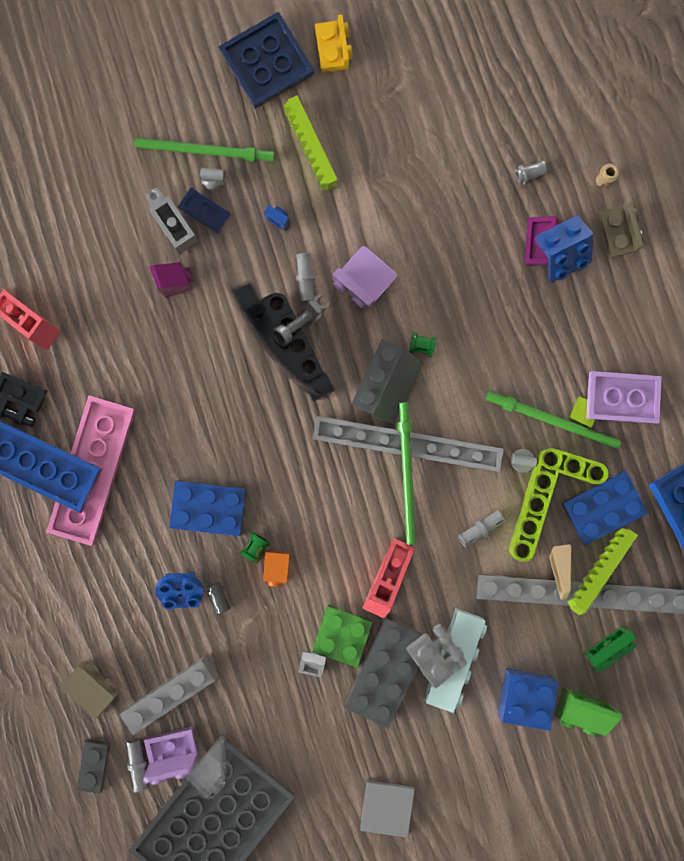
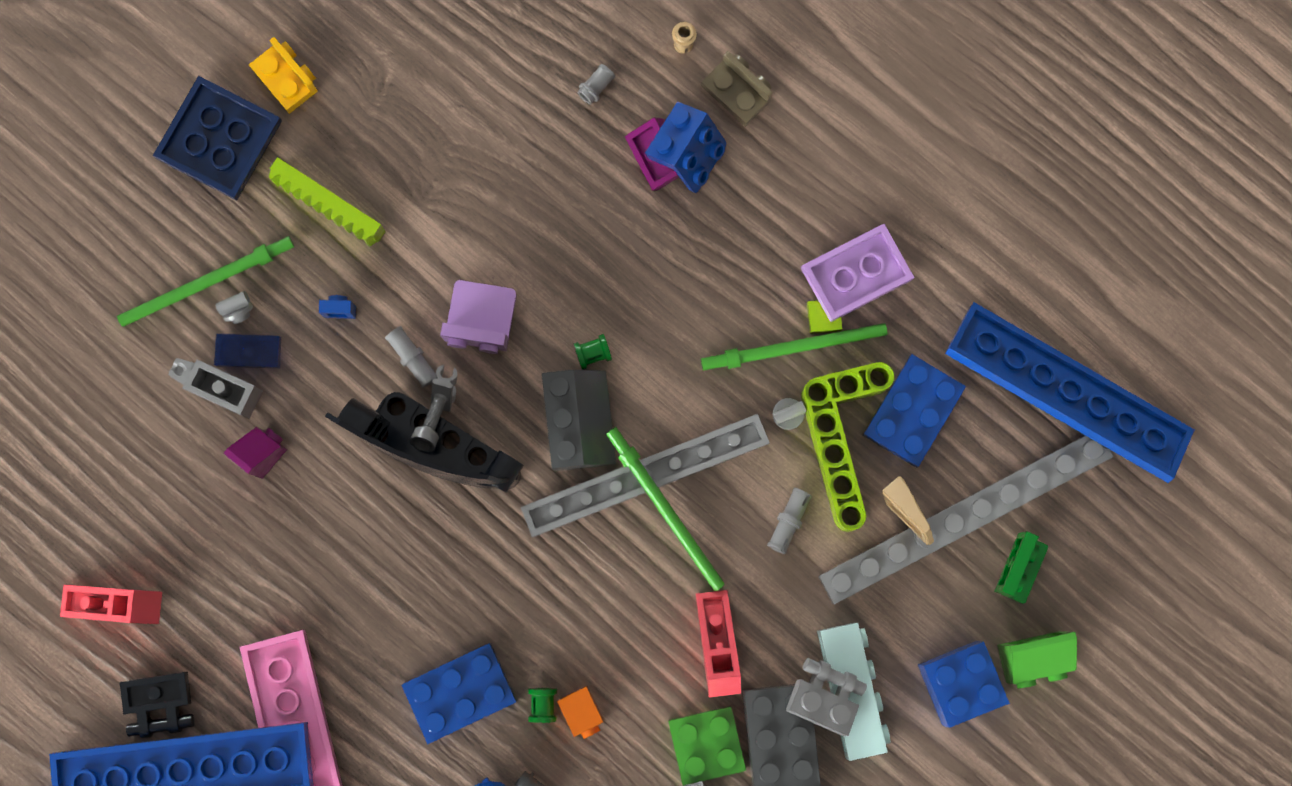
camera: 30 degrees left, 5 degrees down
(602, 571) = (953, 483): lime gear -> none

